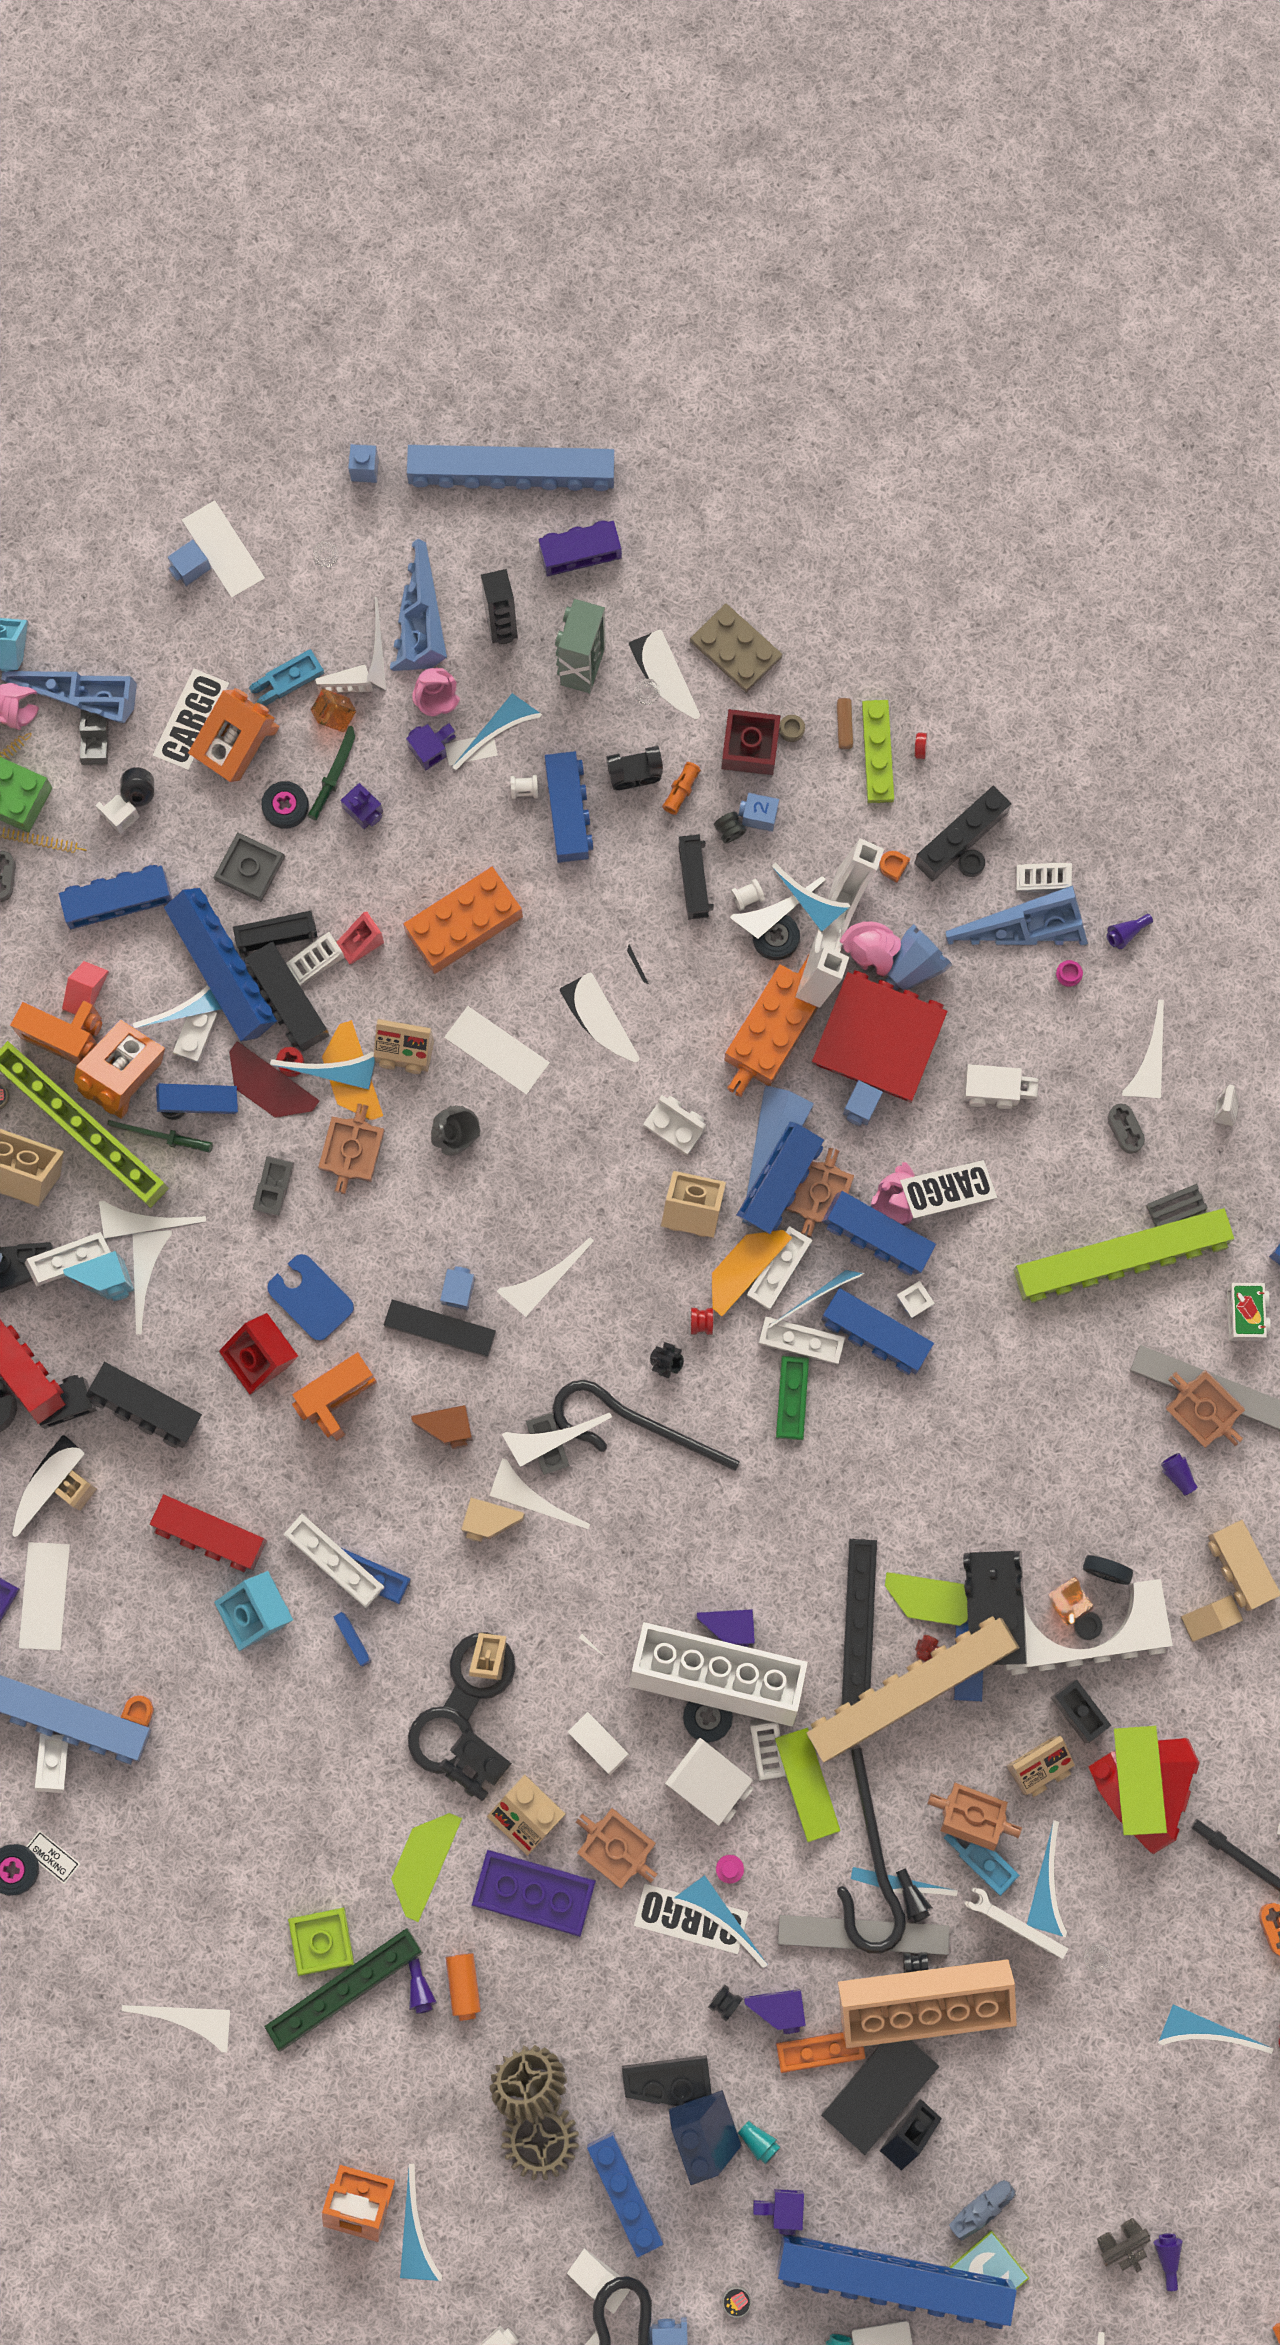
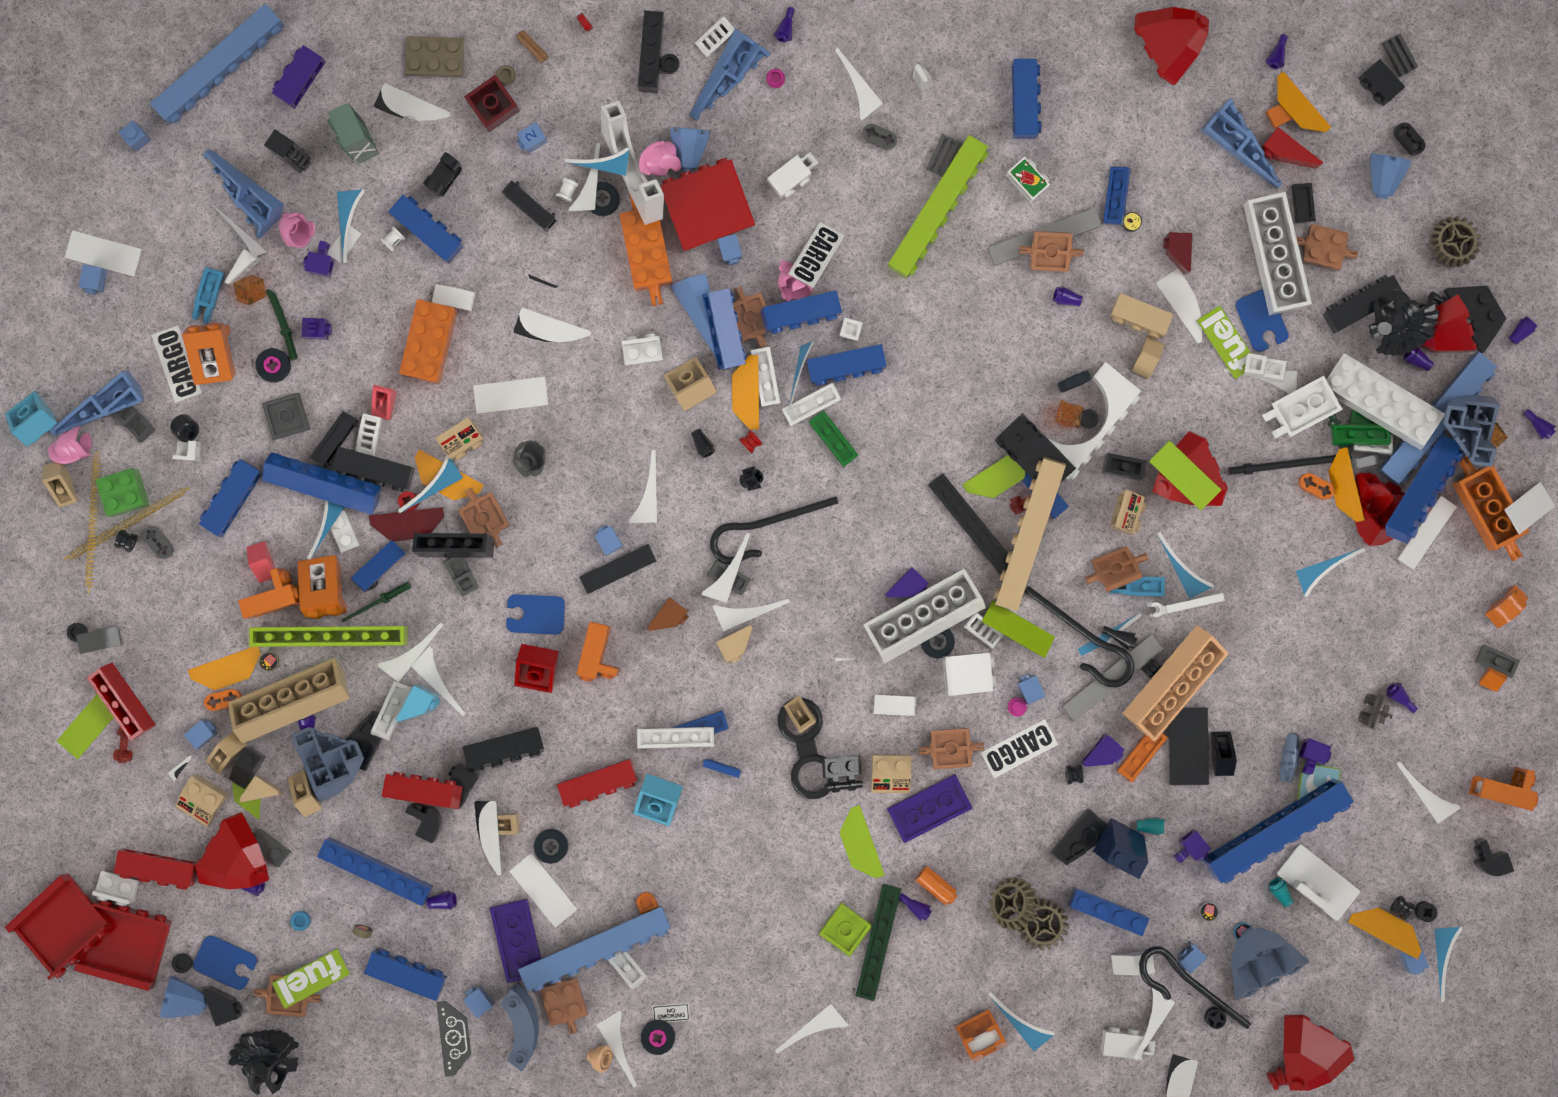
camera: 40 degrees left, 10 degrees up
(110, 1556) = (557, 853): none -> black bush
(293, 1146) = (453, 545): none -> black brick
(531, 899) = (453, 297): none -> white slope
(648, 1280) = (702, 443): none -> black cone
(681, 788) = (477, 162): orange pin -> none
(705, 1899) = (1017, 733): dark azure sticker -> none
(729, 827) = (523, 161): pearl dark grey wheel -> none
(762, 1862) = (1030, 688): none -> medium blue brick
(877, 751) = (563, 46): lime plate -> none
(893, 865) = (629, 102): orange tile -> none
(1014, 2231) = (1314, 753): none -> dark purple brick

